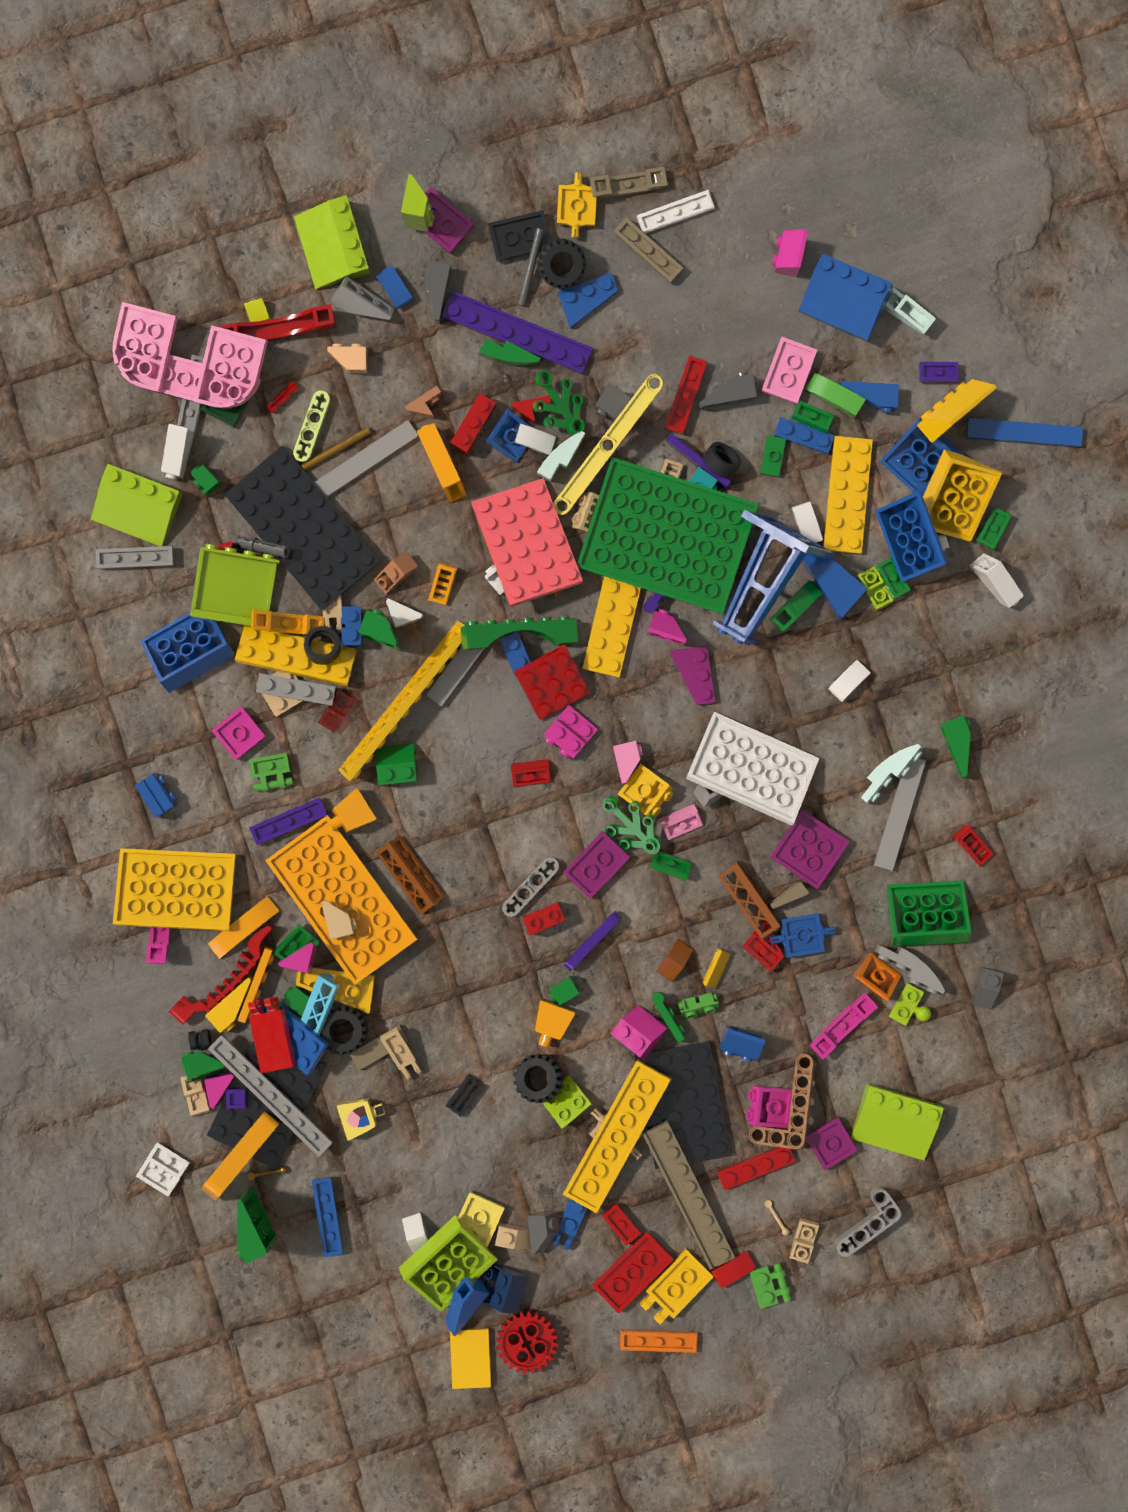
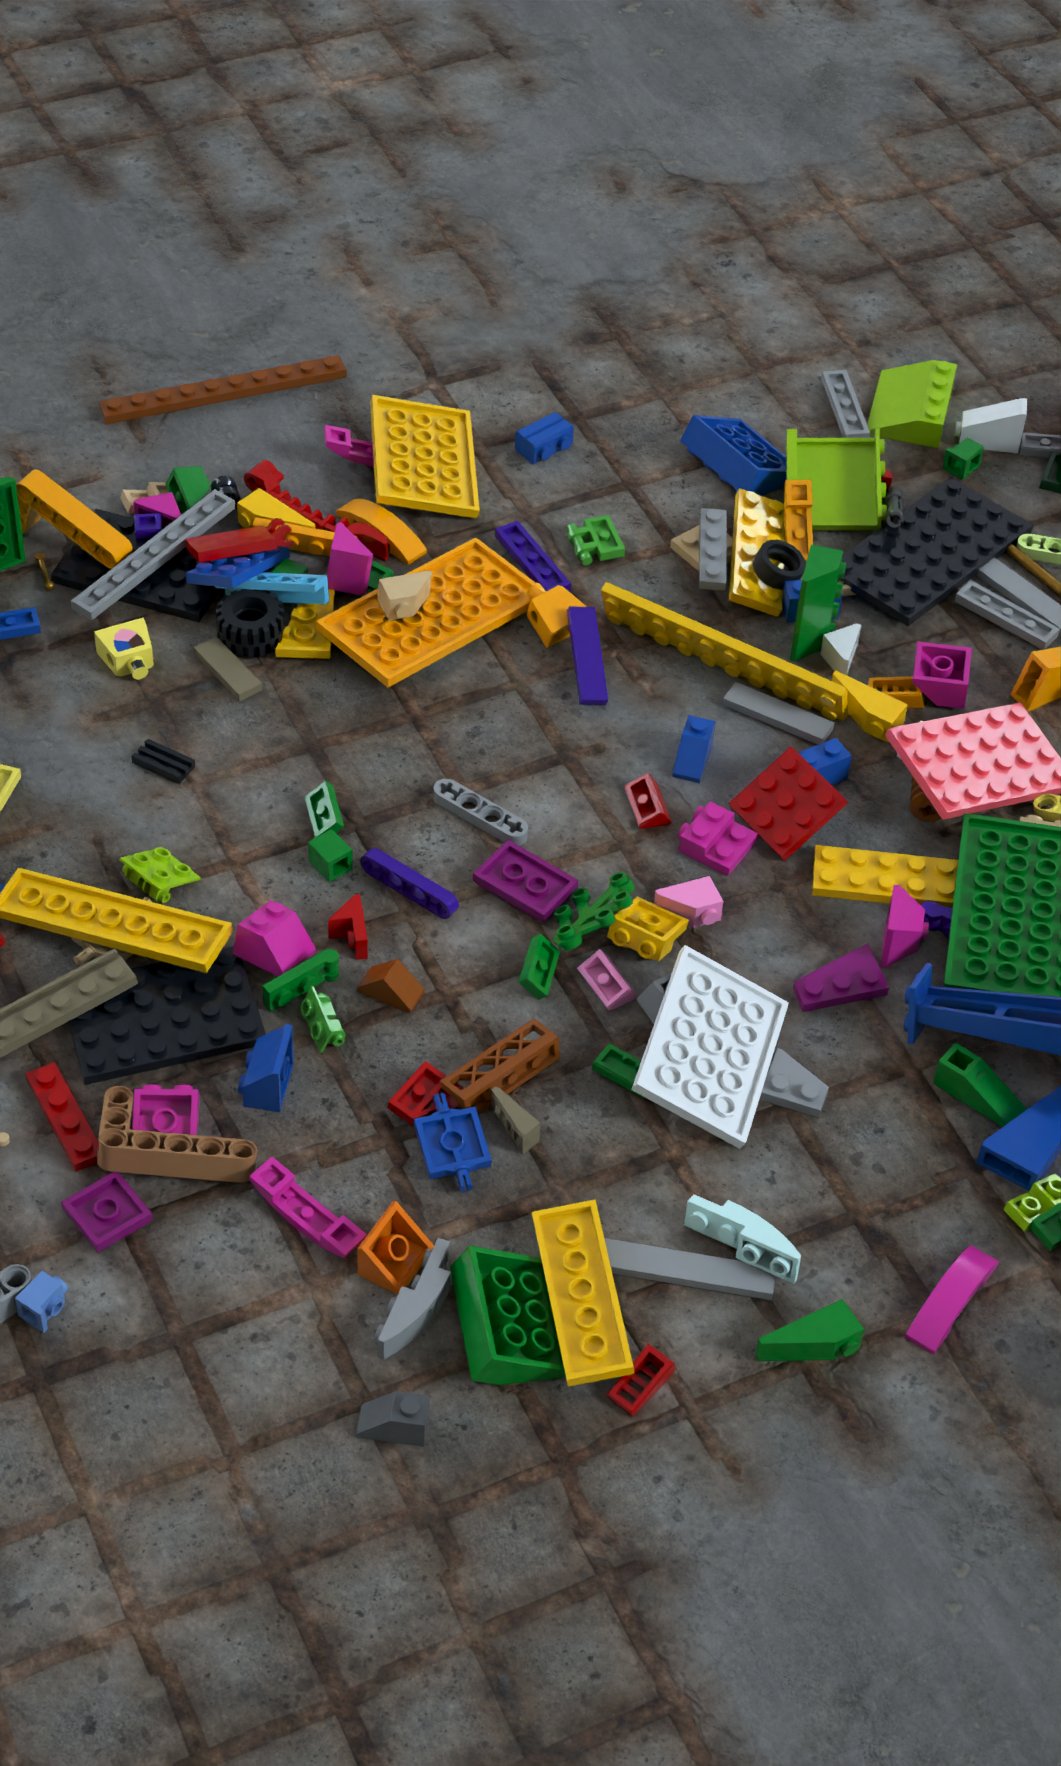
camera: 80 degrees right, 40 degrees down
(72, 1034) = (222, 389): none -> dark orange plate
(162, 1169) = (60, 470): white slope -> none
(238, 733) = (641, 507): dark pink plate -> none
(335, 714) = (688, 598): clear red slope -> none
(376, 487) = (1007, 615): none -> light grey plate
(395, 572) = (897, 638): nougat slope -> none
(396, 764) = (628, 657): green slope -> none
(397, 796) = (587, 655): none -> dark purple tile
(400, 1052) = (221, 682): tan hinge -> none
(412, 872) = (480, 683): dark orange fence -> none
(438, 550) = (942, 673): none -> dark pink slope
(465, 604) = (871, 708): none -> yellow slope
(491, 735) = (694, 748): none -> blue slope
(522, 1078) = (195, 828): black tyre -> none
(524, 991) = (324, 809): none -> green plate
(543, 918) = (436, 823): red brick -> none
(552, 1021) = (281, 844): light orange torso -> none
(556, 631) = (836, 700): green arch -> none
(621, 980) = (350, 924): none -> red slope
(716, 968) = (384, 1036): yellow slope -> none
(754, 825) = (617, 1066): none -> green plate
(775, 719) = (793, 1086): none -> light grey wing
(809, 849) = (594, 1143): magenta plate -> none
(849, 680) = (876, 1168): white slope -> none
(891, 1182) = (41, 1300): none -> medium blue brick
(896, 1121) = (149, 1302): lime slope -> none
(907, 1005) = (348, 1305): lime plate -> none
(919, 872) = (582, 1293): none -> yellow plate
(935, 655) = (950, 1298): none -> dark pink slope

